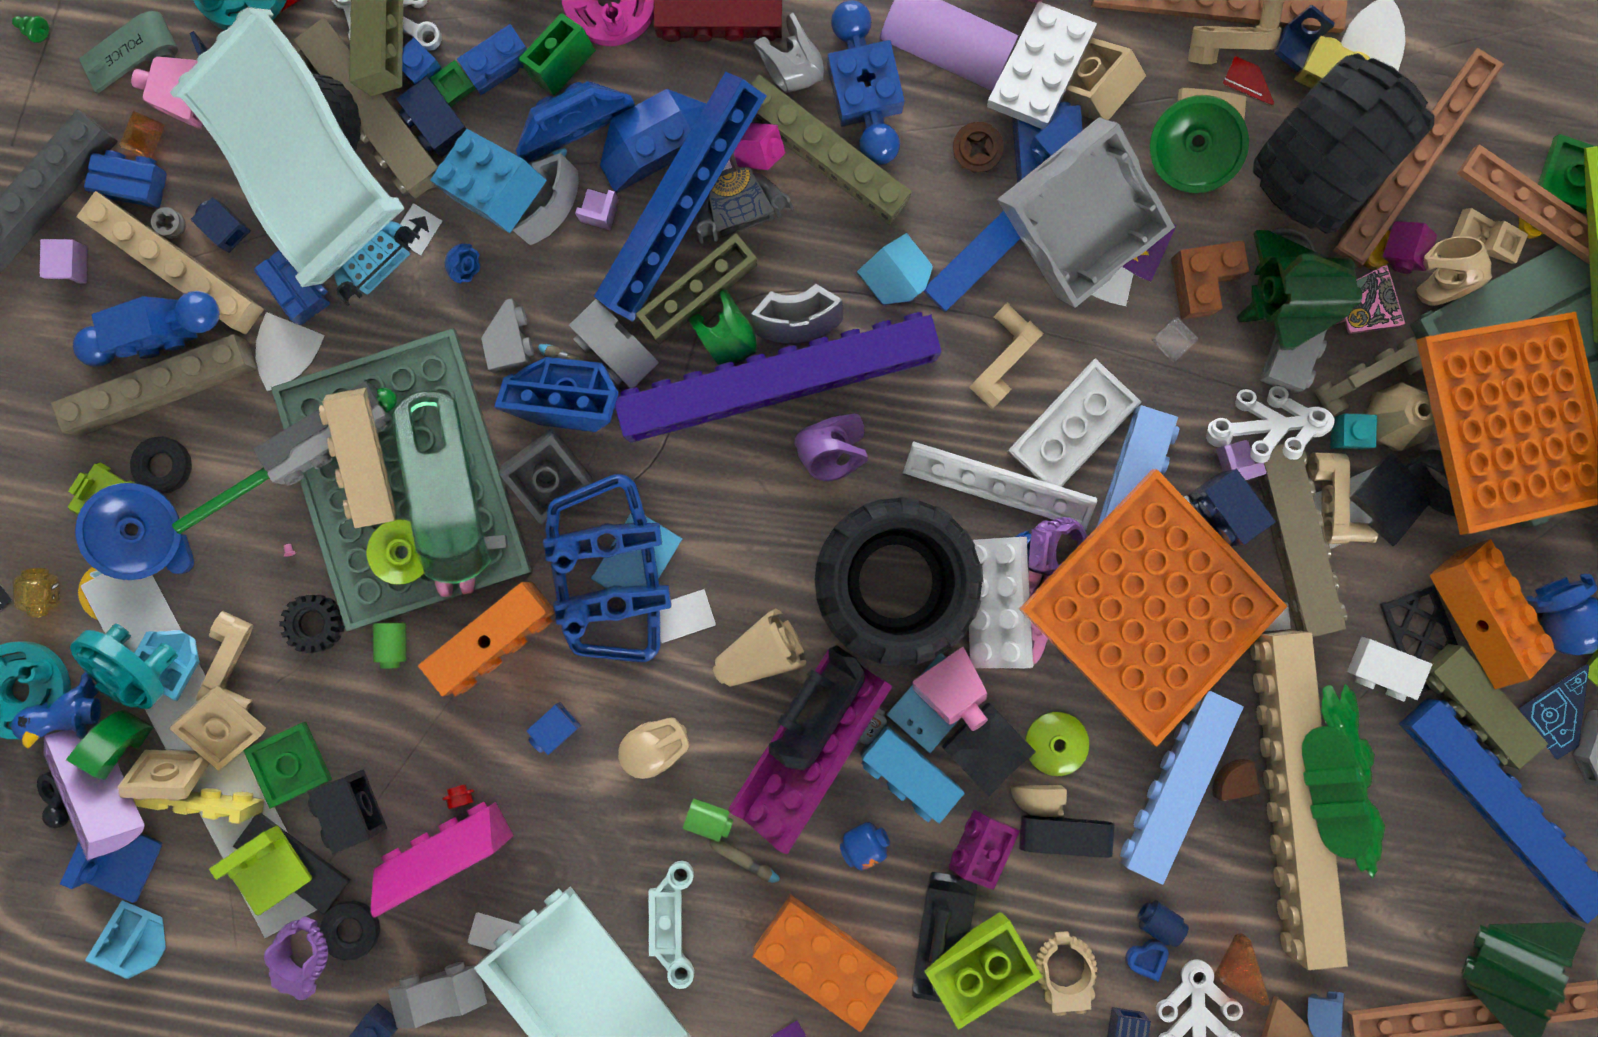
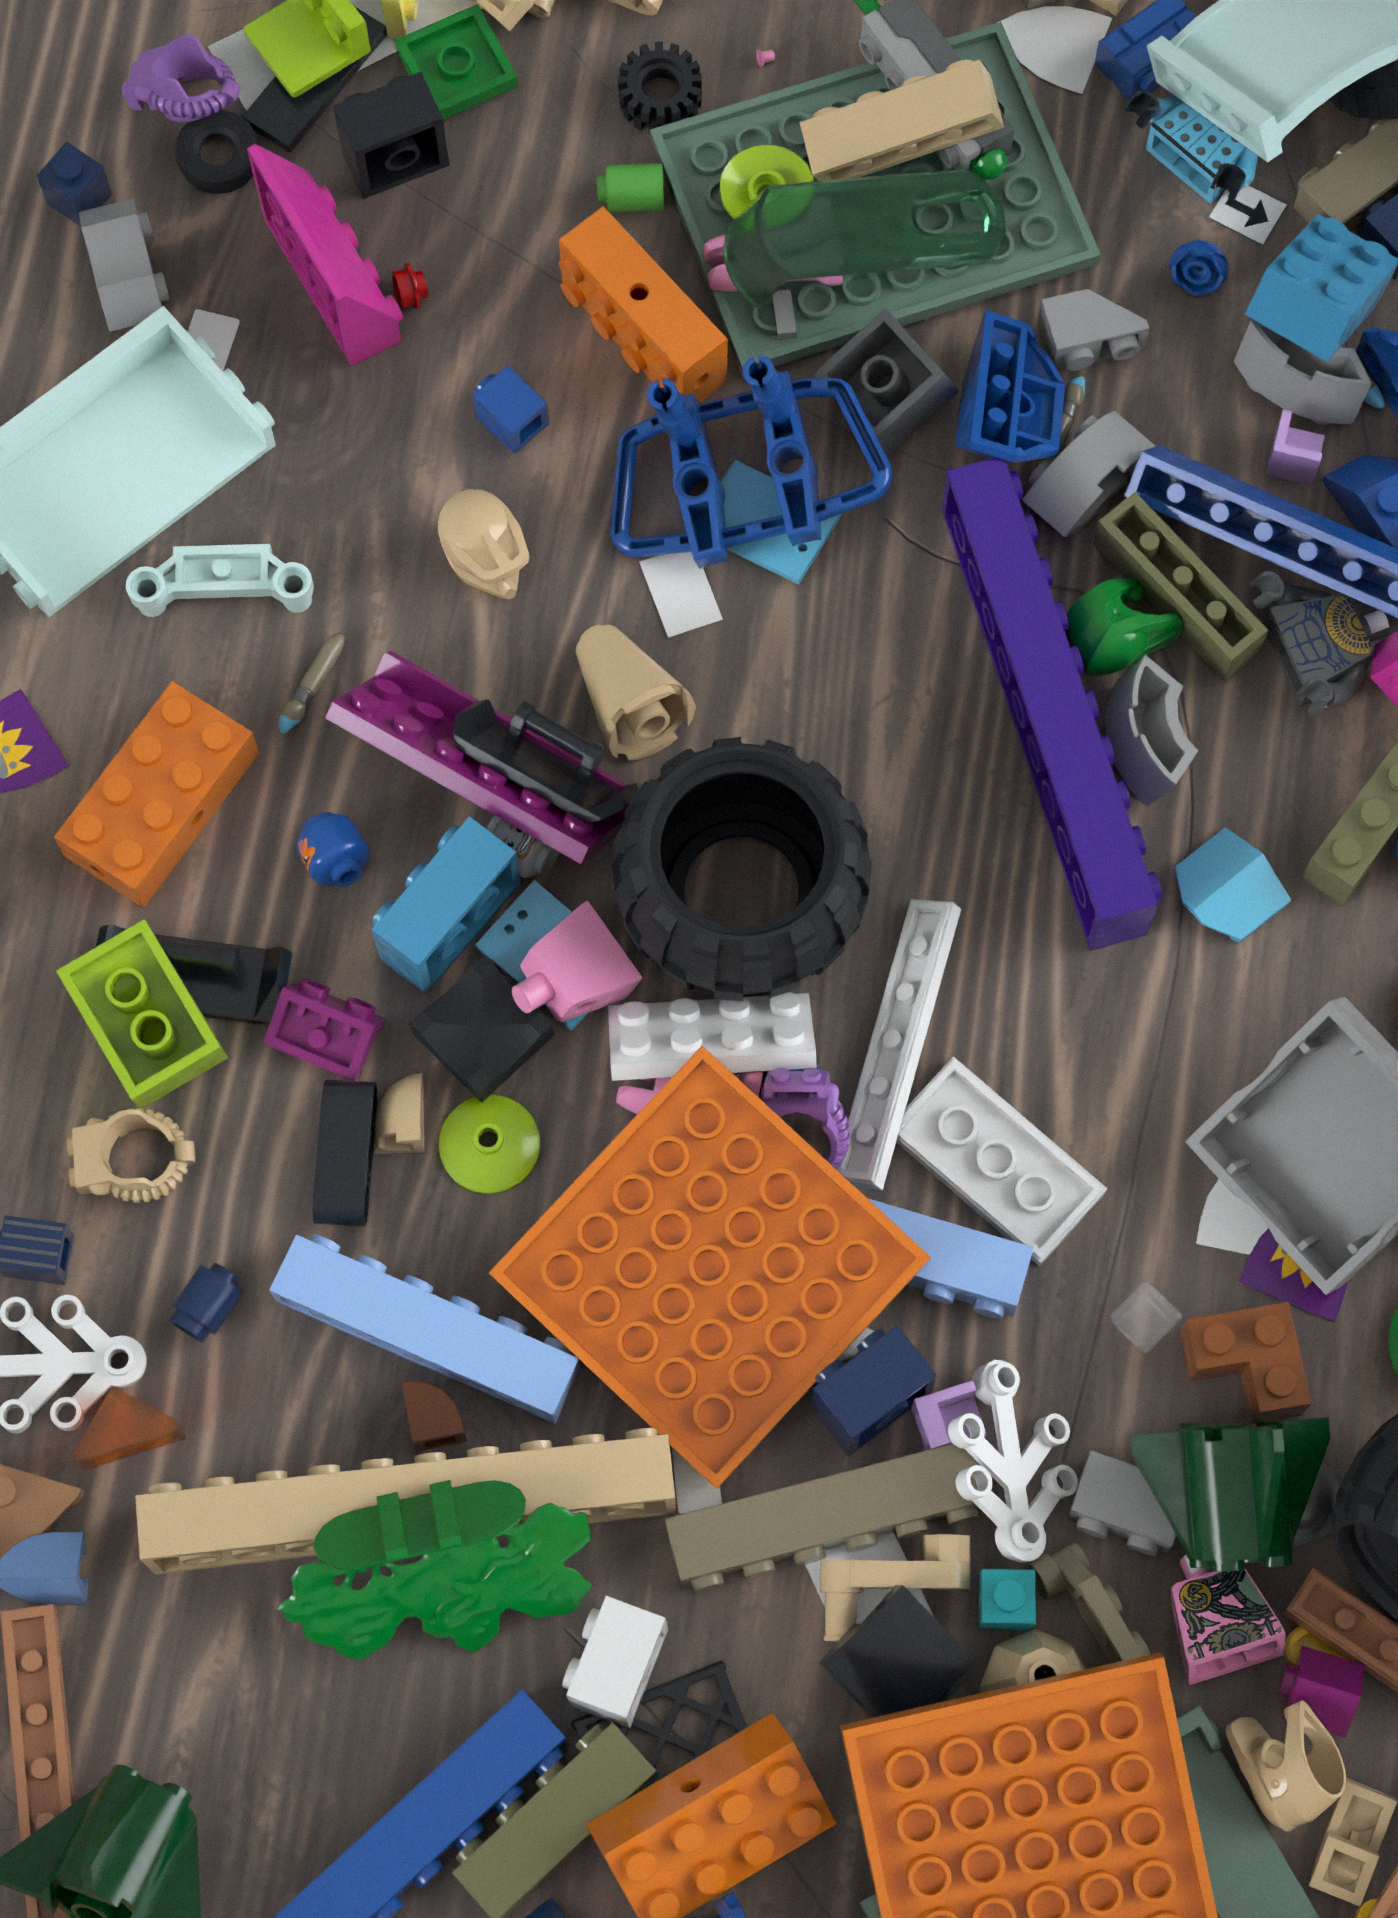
camera: 90 degrees right, 15 degrees down
(707, 820) = (373, 624): bright green brick -> none
(826, 441) = (951, 778): medium lavender helmet -> none
(972, 262) = (1238, 989): blue tile -> none
(989, 384) = (1061, 1023): tan beam -> none
(1148, 959) = (147, 1287): blue tile -> none

